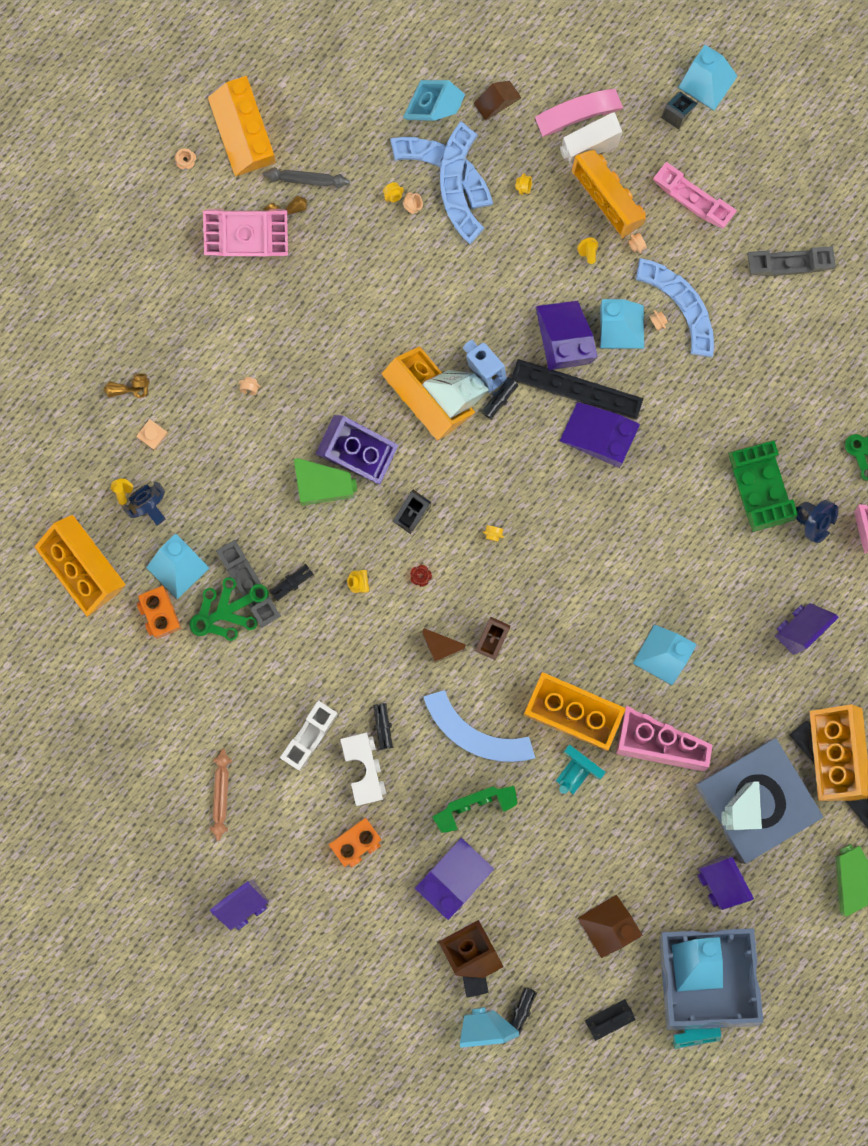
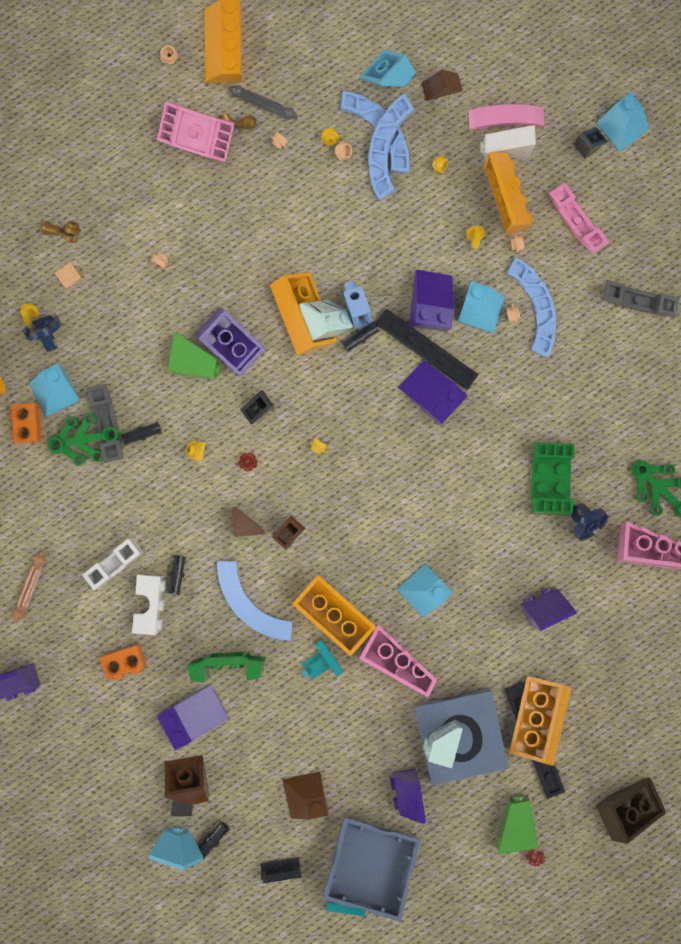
camera: 25 degrees right, 5 degrees up
(338, 214) = (279, 141): none -> light nougat plate
(698, 964) = (365, 852): medium azure slope -> none

